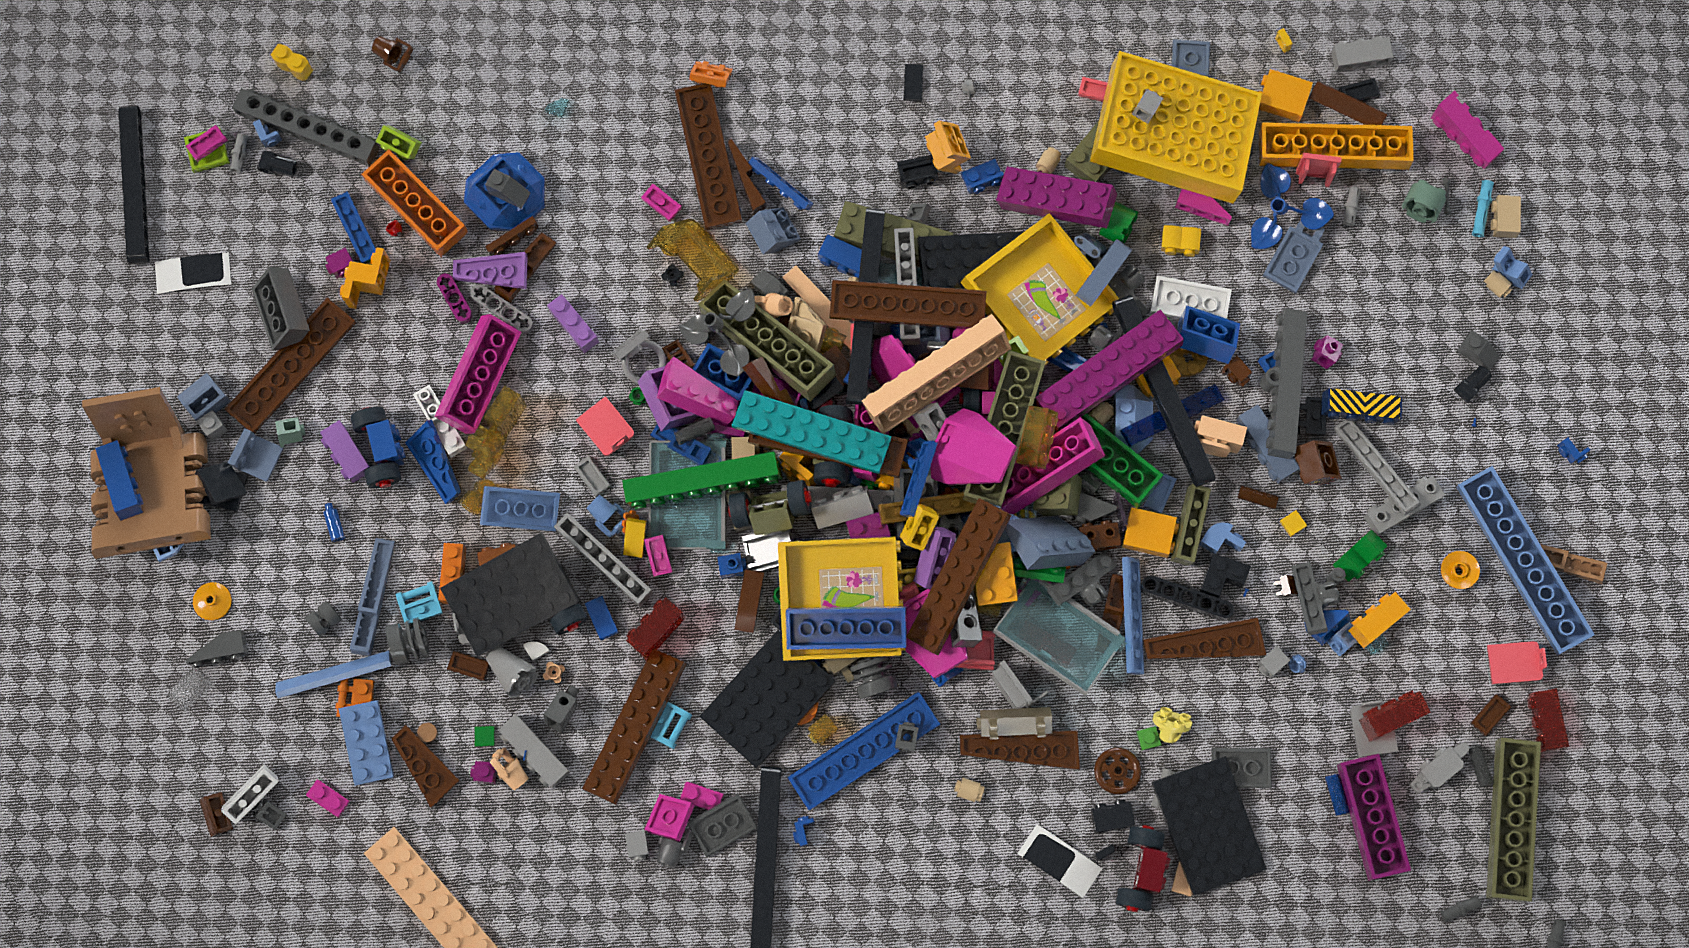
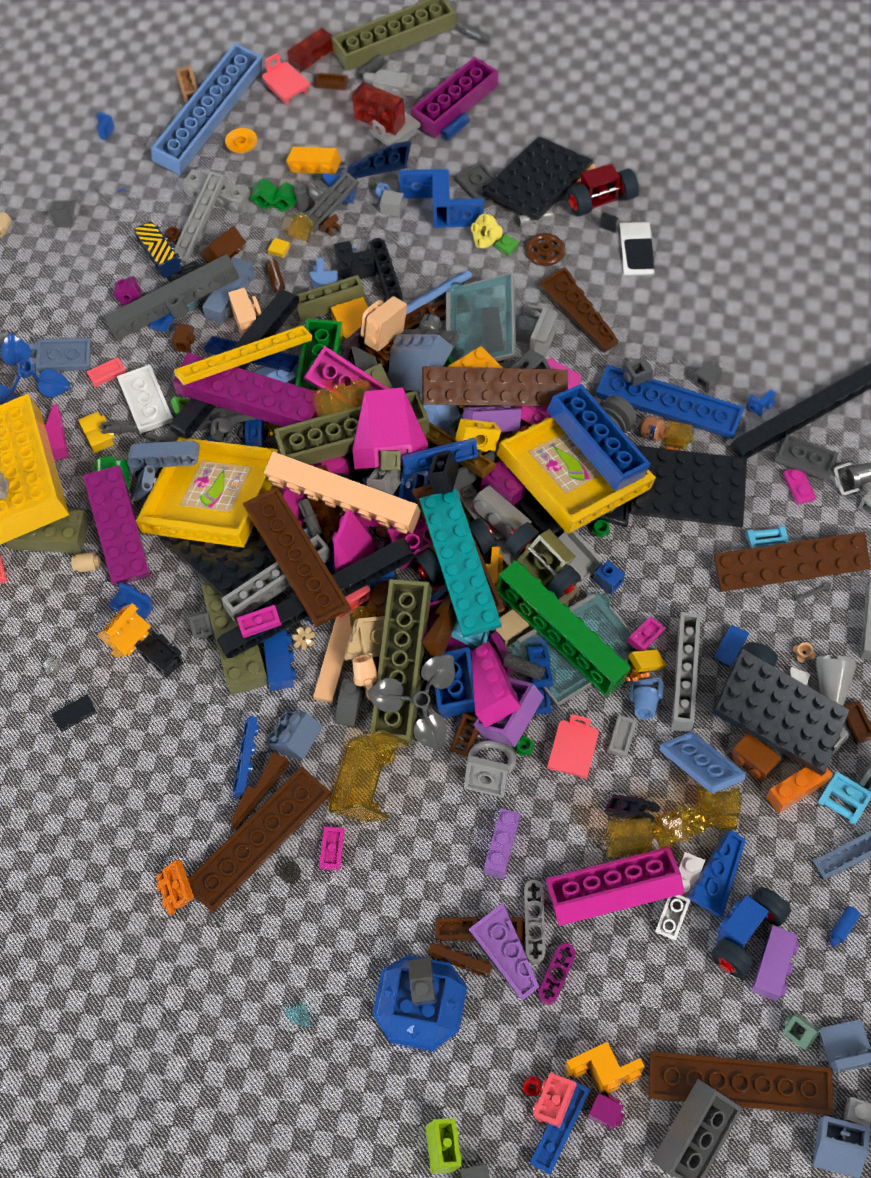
camera: 125 degrees left, 15 degrees down
(371, 231) = (554, 1100): none -> coral bracket
(414, 203) = (494, 1080): orange brick -> none
(527, 432) = (630, 807): none -> black hinge
(561, 709) = (829, 619): dark grey torso -> none
(596, 741) = (826, 586): none -> dark grey hinge
(655, 628) = (707, 592): clear red brick -> none
(666, 163) = (290, 872): none -> clear smoke tile
(669, 817) = (836, 490): dark pink plate -> none
(672, 270) = (394, 787): black plate -> none
(749, 601) = (626, 544): reddish brown slope -> none
(846, 712) = (652, 428): none -> nougat head
(864, 805) = (707, 376): none -> dark grey brick
(870, 243) = (259, 621): none -> dark pink plate
(895, 465) = (443, 472): none -> black brick
(941, 432) = (390, 460): none -> olive tile
(969, 790) = (638, 321): tan brick -> none
(1015, 722) = (567, 321): dark tan brick -> none
(1112, 539) = (383, 322): none -> light nougat brick
(1113, 816) = (581, 230): black hinge -> none
(1146, 385) = (242, 355): none -> yellow tile
(1168, 258) = (118, 427): none -> dark grey pin
(1208, 334) = (162, 359): blue brick -> none
(1218, 641) = (407, 246): reddish brown wing -> none
(1243, 707) = (435, 185): none -> blue bracket
(1248, 286) = (106, 372): none -> coral tile
(1297, 553) = (301, 227): none -> clear yellow brick
(1333, 692) = (383, 160): none -> dark blue wedge
(1376, 430) = (172, 234): none -> reddish brown plate
(1470, 387) = (97, 202): black piece -> none

